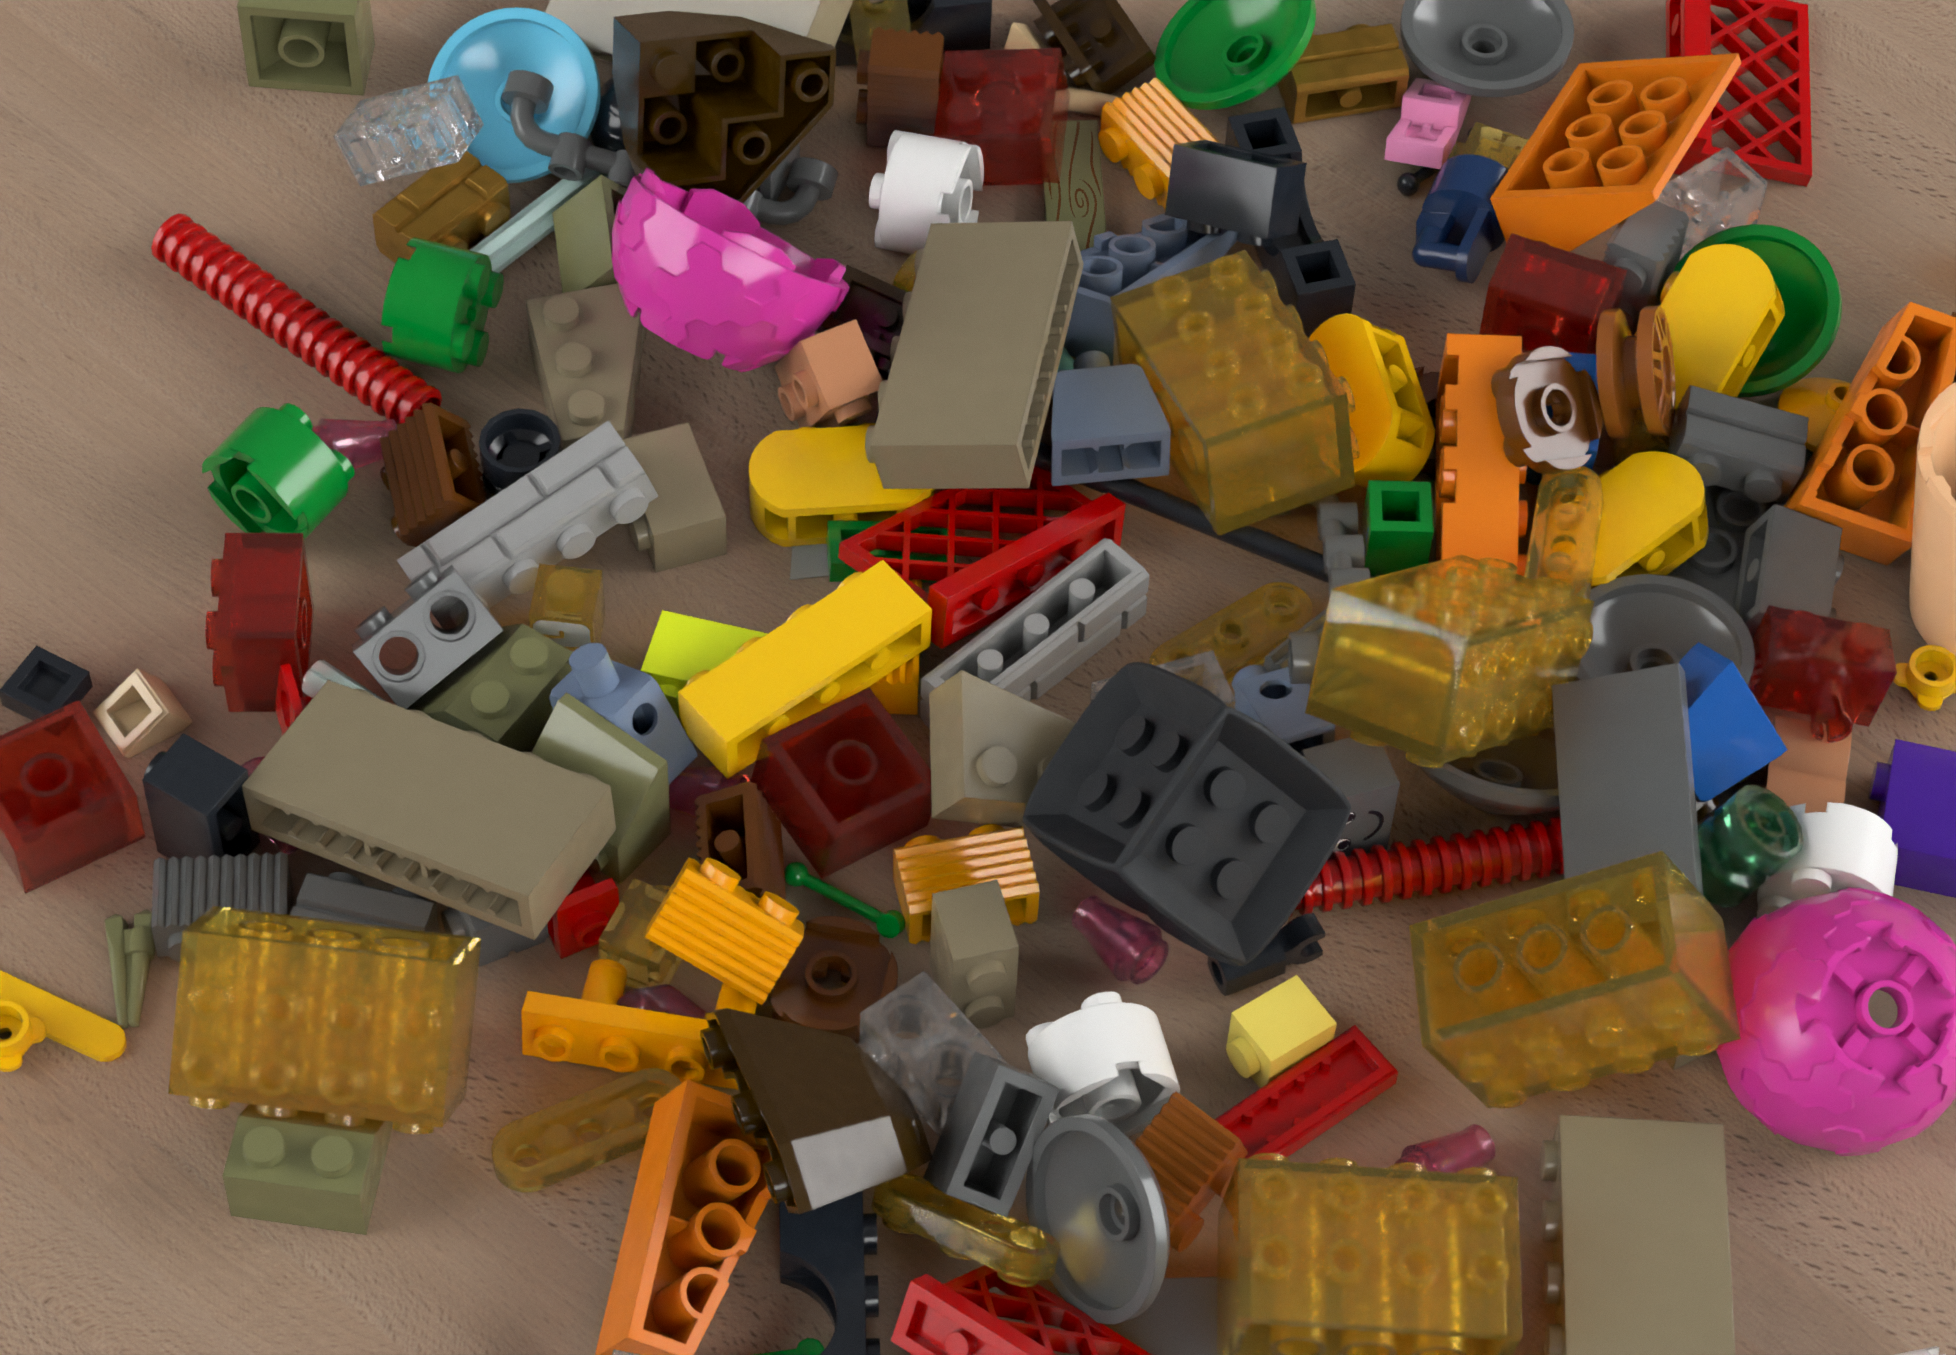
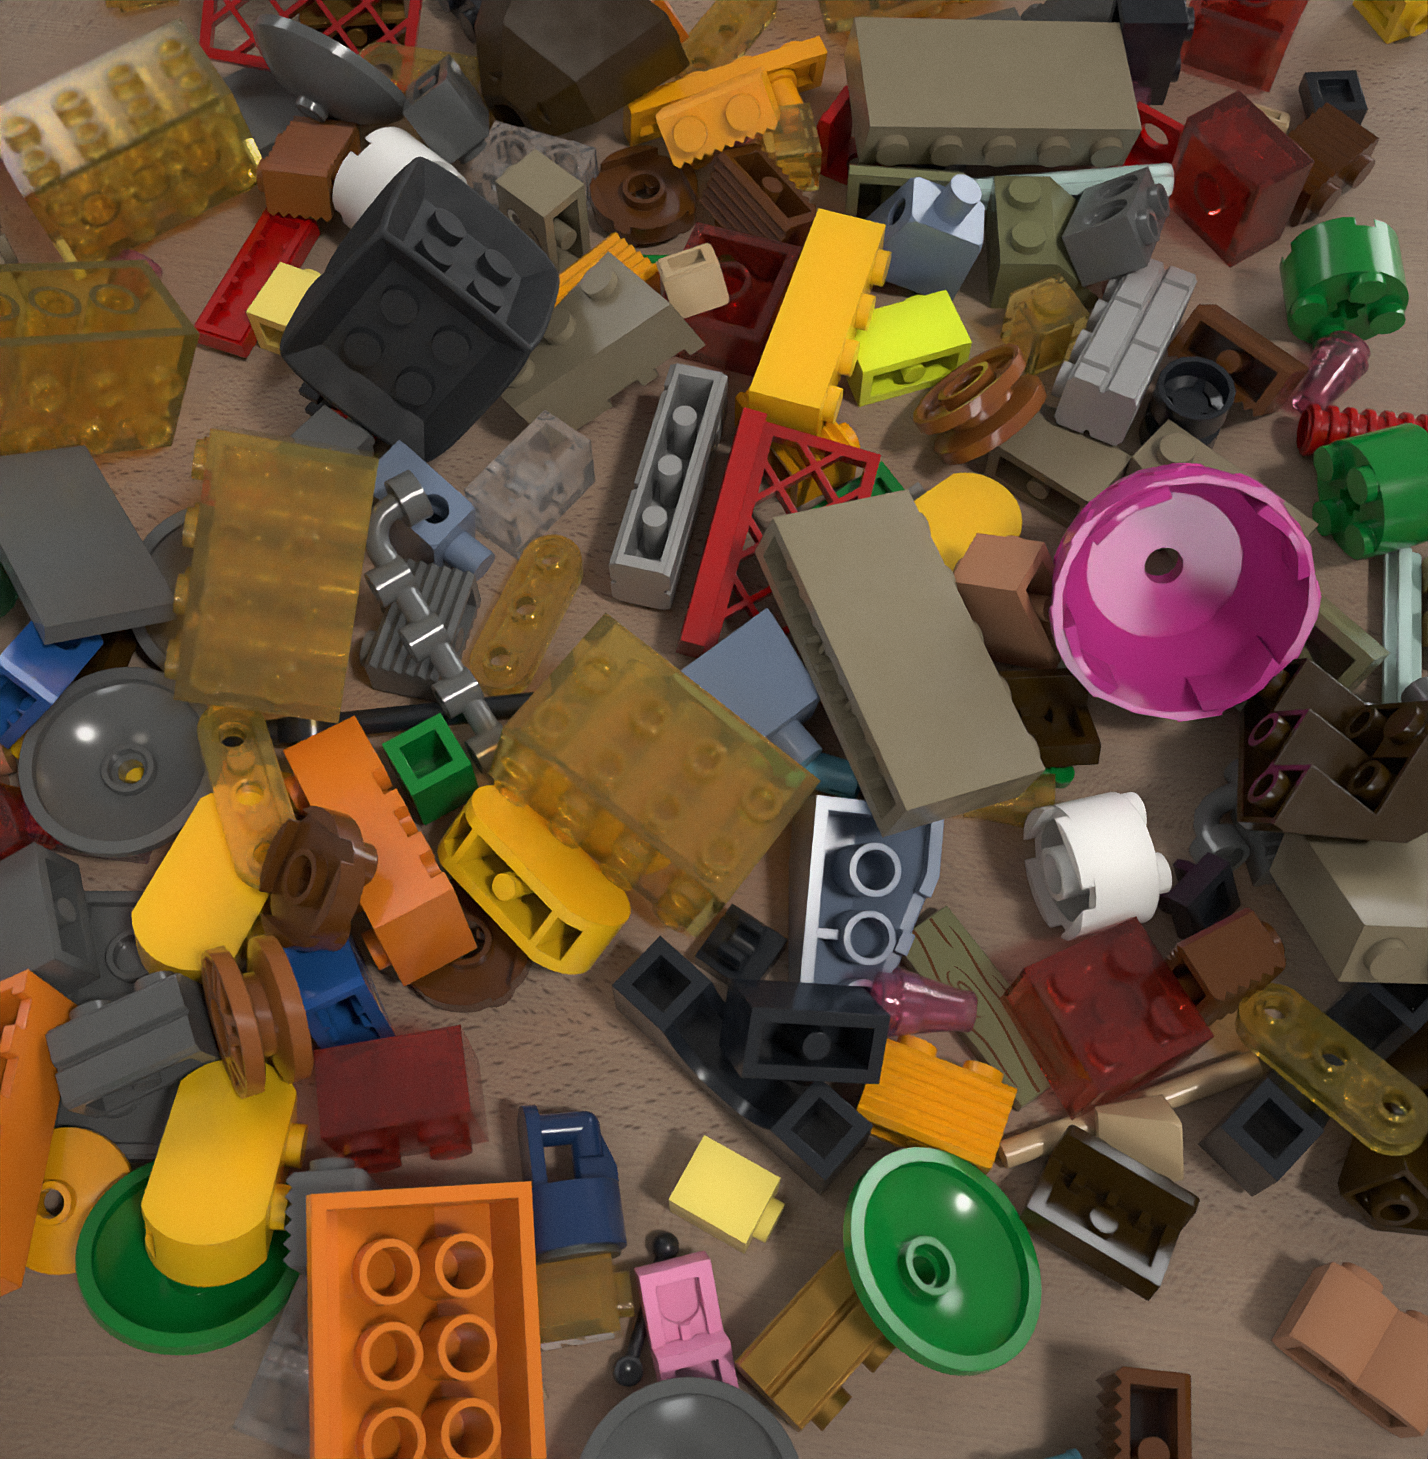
camera: 150 degrees right, 10 degrees up
(145, 626) = (1340, 159): none -> reddish brown brick
(734, 576) = (980, 404): none -> dark orange wheel
(856, 155) = (1201, 896): none -> black tile
(885, 778) = (693, 280): none -> tan slope
(1130, 188) = (923, 1004): none -> clear pink cone
(1349, 173) = (727, 1196): none -> light yellow brick

